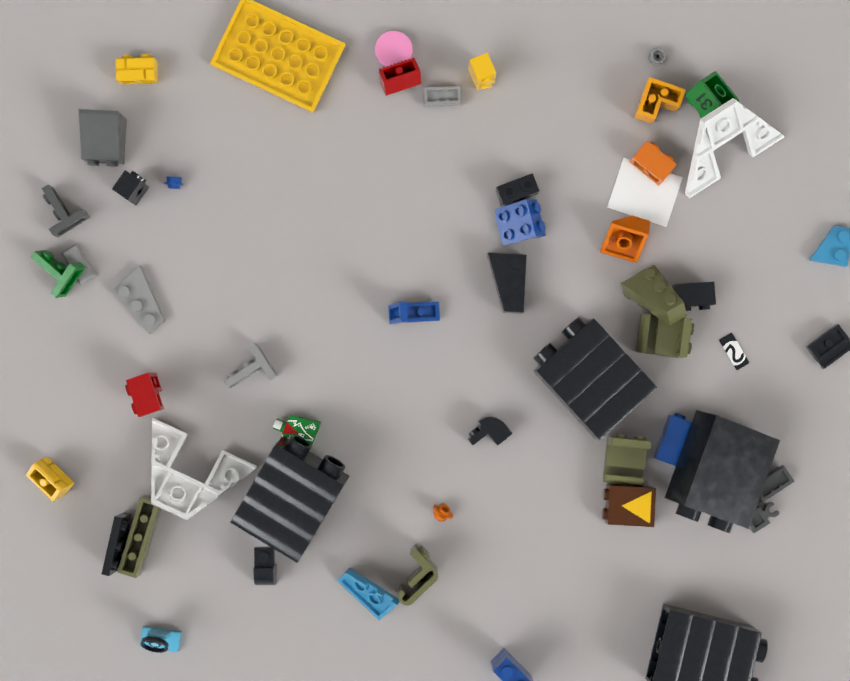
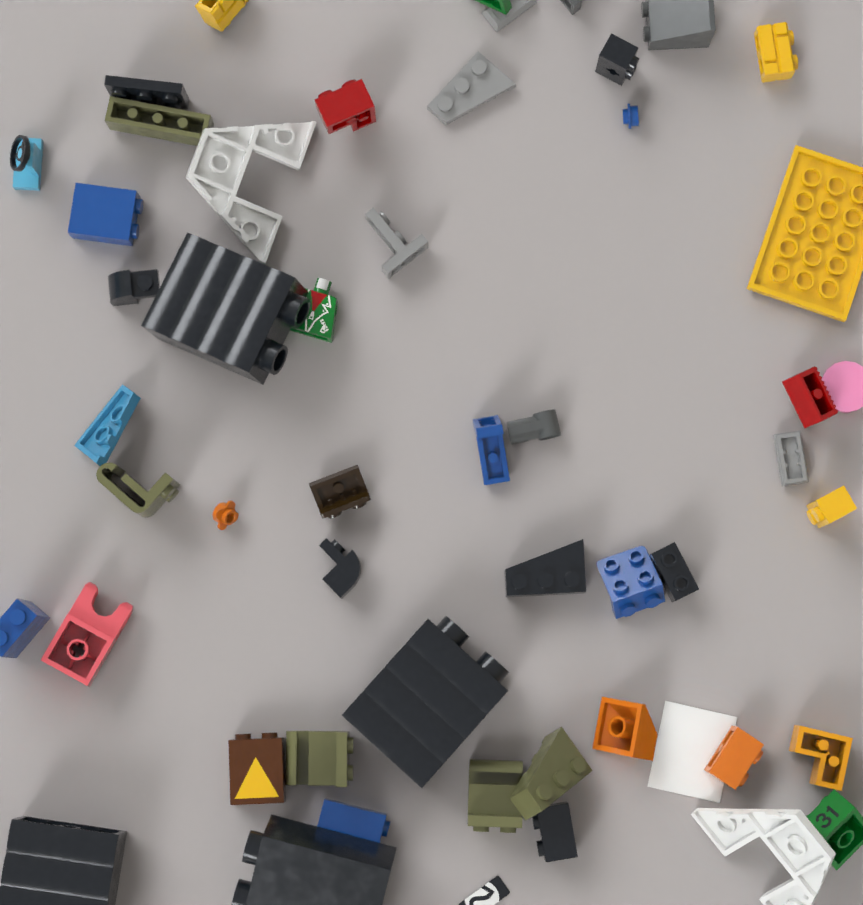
camera: 90 degrees right, 5 degrees down
(206, 583) = (105, 214): none -> blue brick
(400, 275) = (540, 426): none -> dark grey piece
(434, 426) = (340, 492): none -> dark brown bracket
(516, 620) = (86, 627): none -> coral brick

